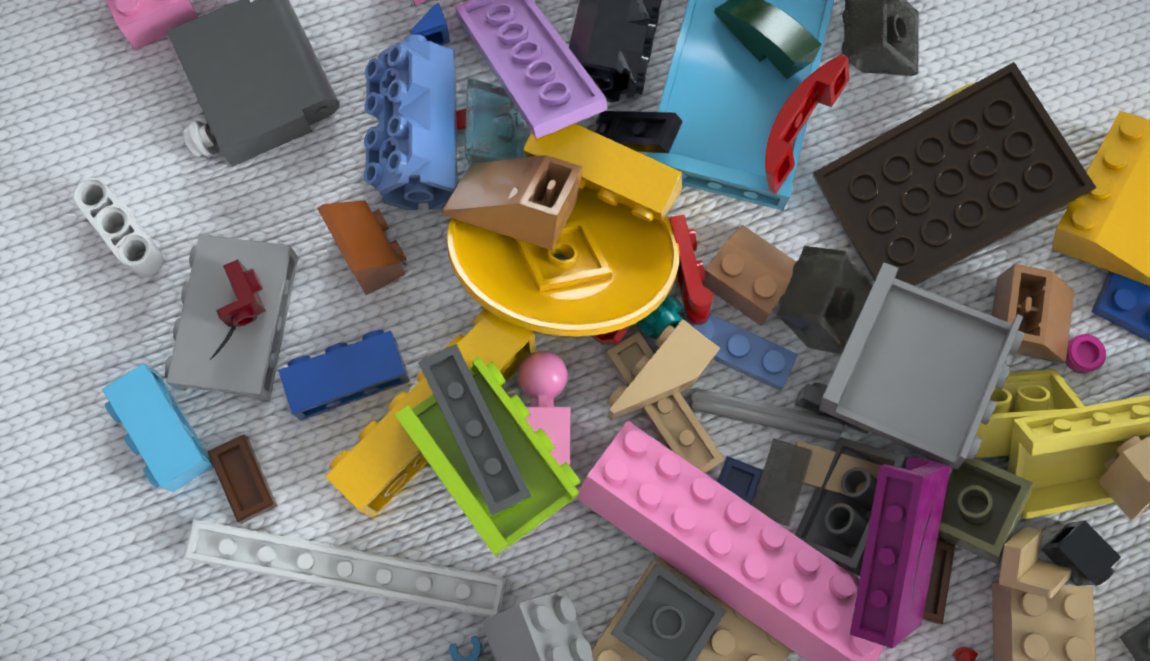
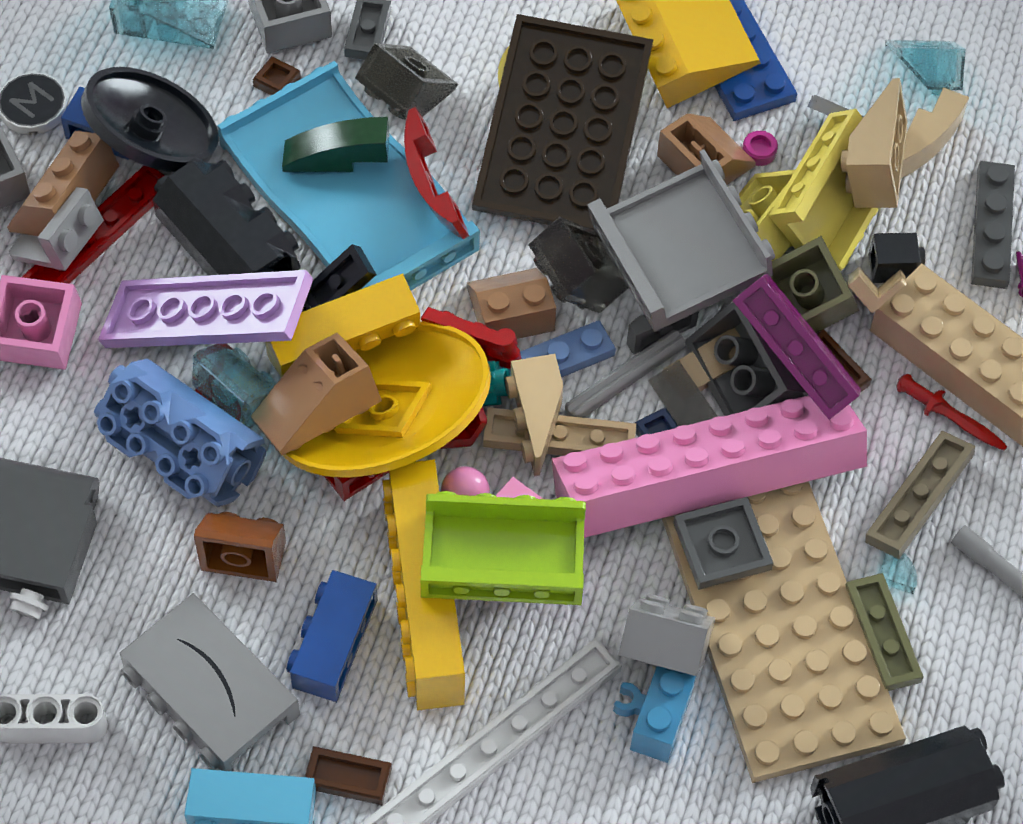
camera: 50 degrees left, 15 degrees down
(246, 288) = (210, 642): dark red bracket -> none
(433, 26) = (103, 364): blue slope -> none
(474, 430) = (477, 538): dark grey plate -> none

